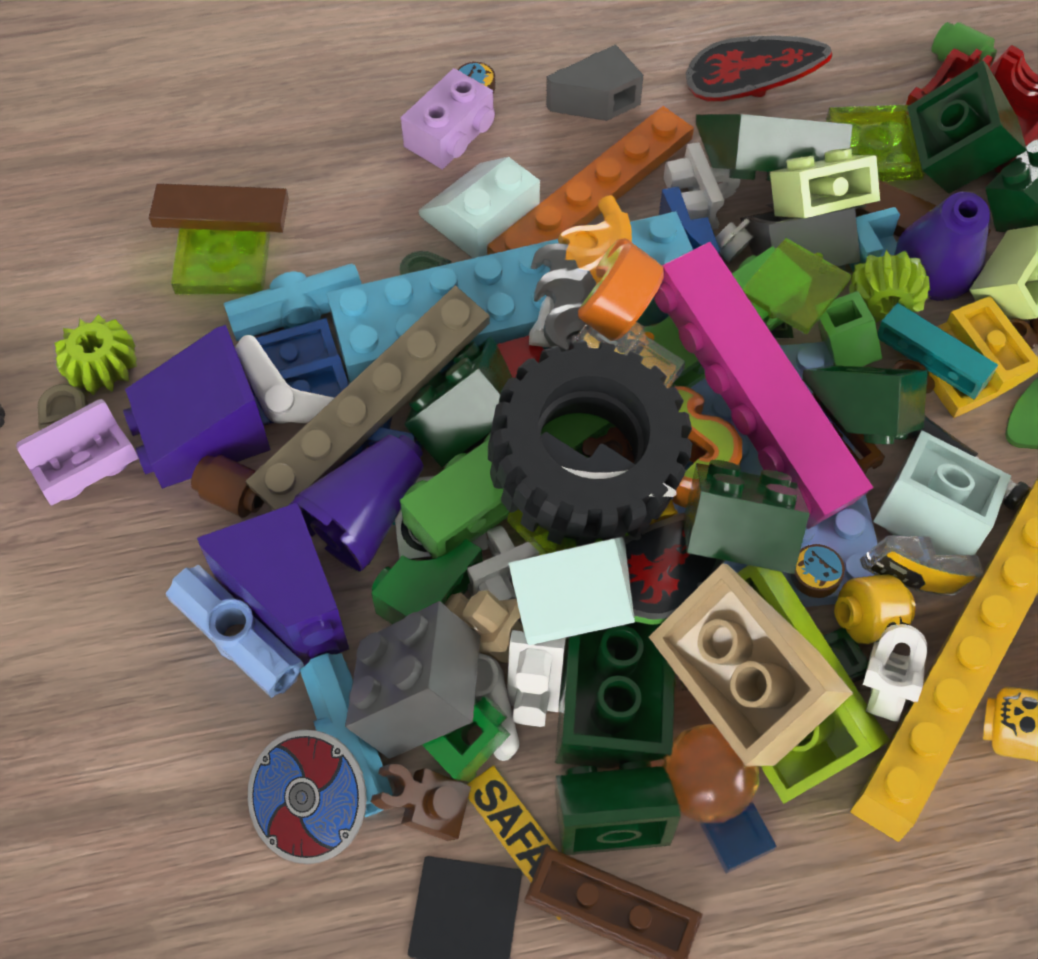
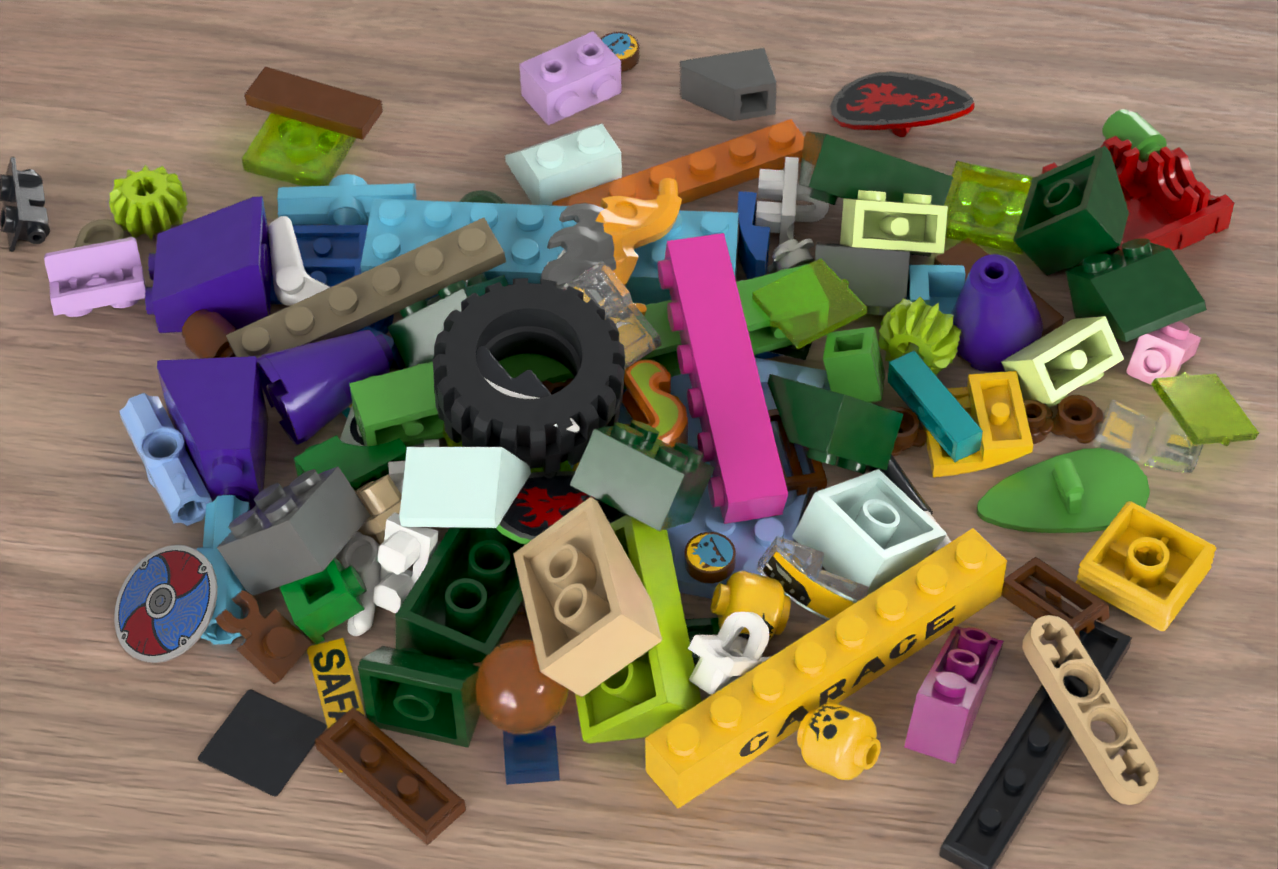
camera: 20 degrees right, 10 degrees down
(624, 291) = (616, 248): orange animal -> none

